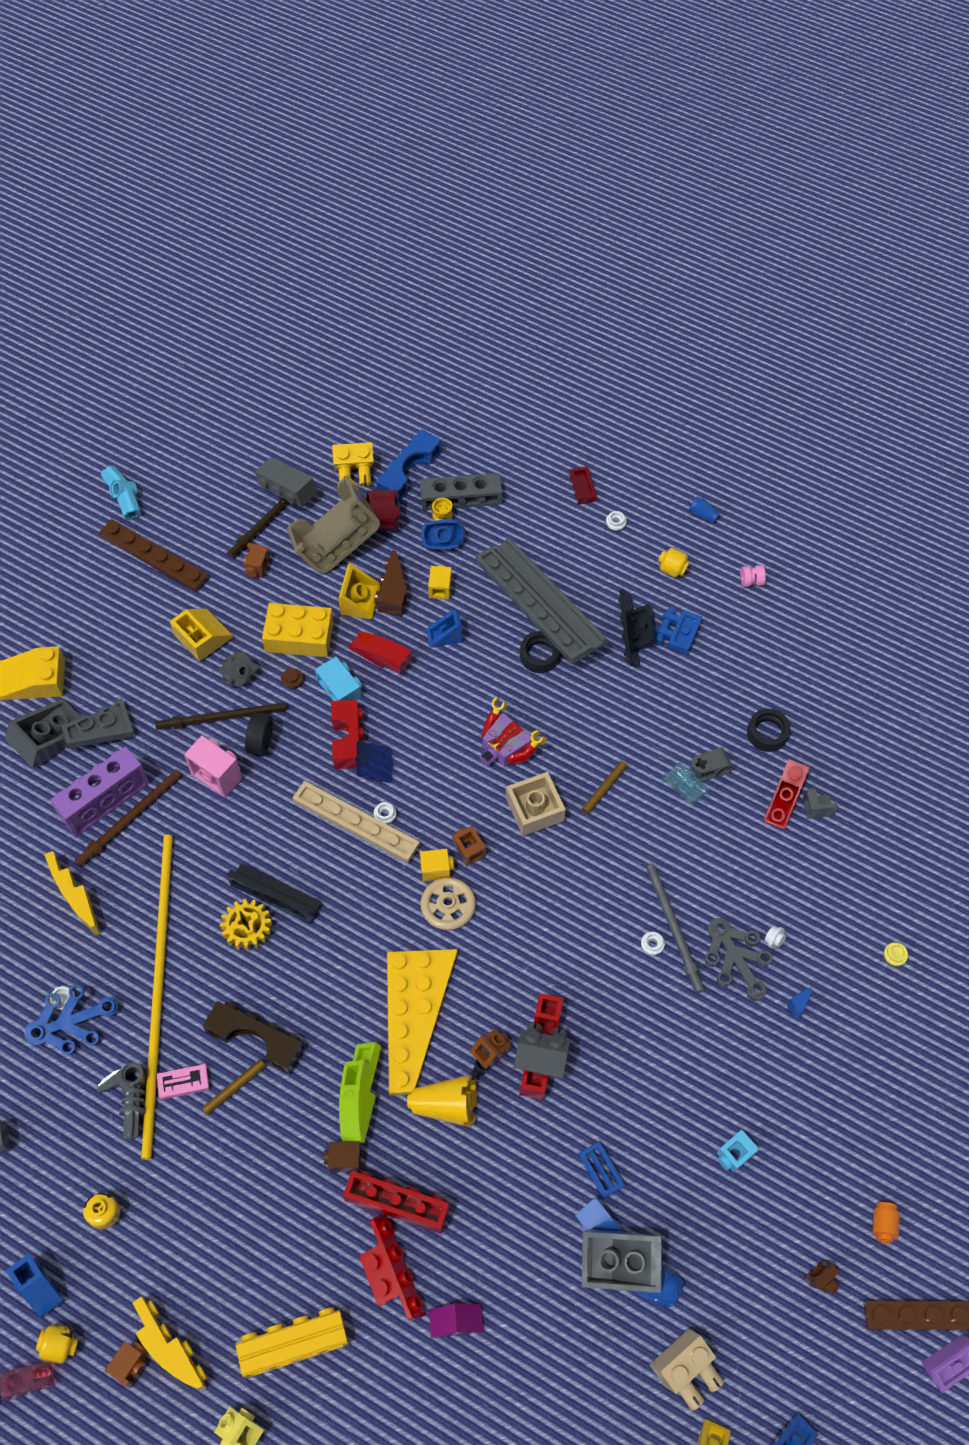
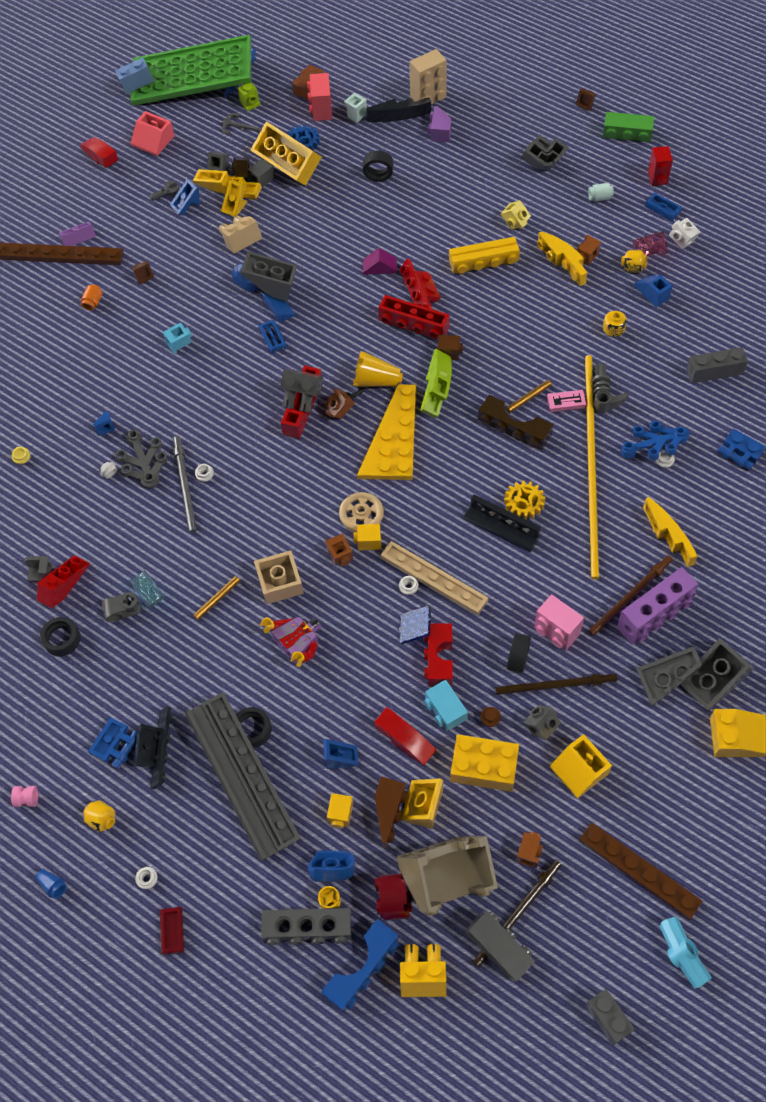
camera: 170 degrees left, 0 degrees up
(193, 443) = (609, 1017): none -> dark grey brick

